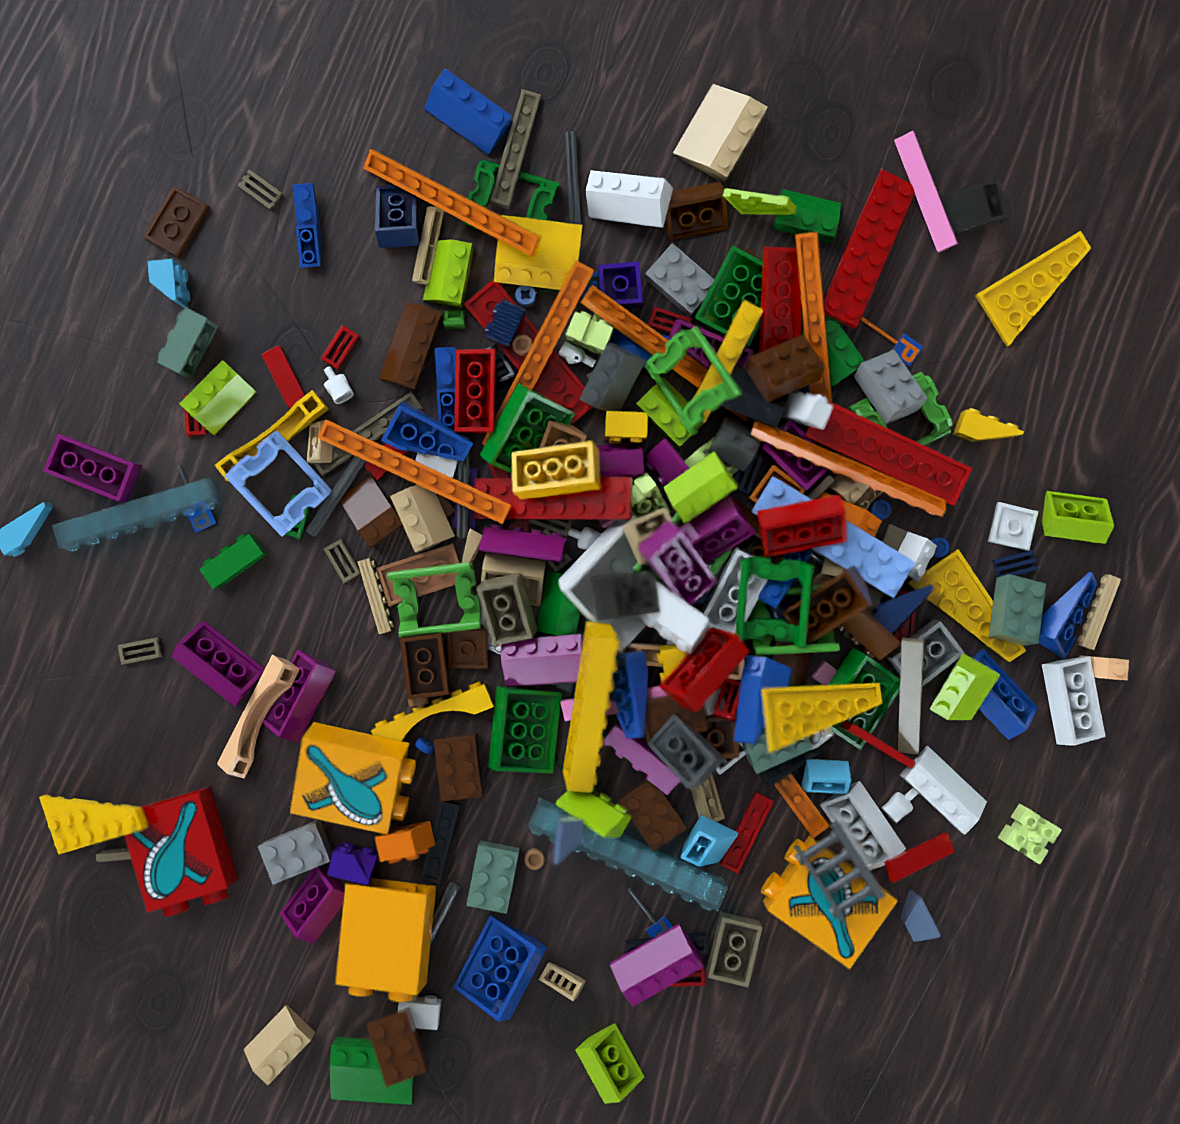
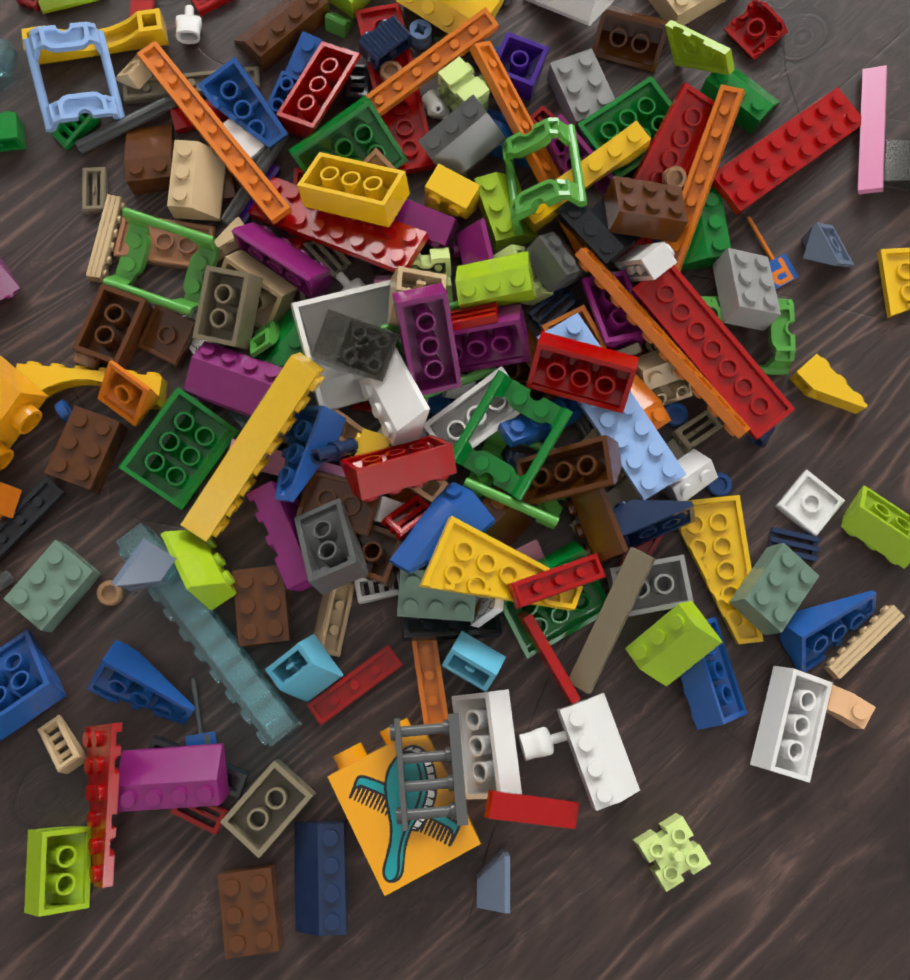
camera: 20 degrees right, 10 degrees down
(469, 713) = (126, 394): none -> orange slope
(546, 615) = (264, 338): none -> bright green slope
(585, 910) = (133, 679): none -> blue wedge
(614, 1000) = (102, 798): none -> red wing
(651, 682) = (333, 451): none -> dark blue pin
(699, 522) = (475, 316): none -> red tile
(758, 1022) = (250, 910): none -> reddish brown brick
(792, 150) = (756, 29): none -> red slope
(793, 325) = (674, 176): none -> medium nougat tile
(794, 975) = (321, 877): none -> dark blue slope
(860, 691) = (556, 581): none -> red tile
(896, 528) = (684, 439): none -> dark tan tile
(935, 315) = (825, 246): none -> sand blue slope

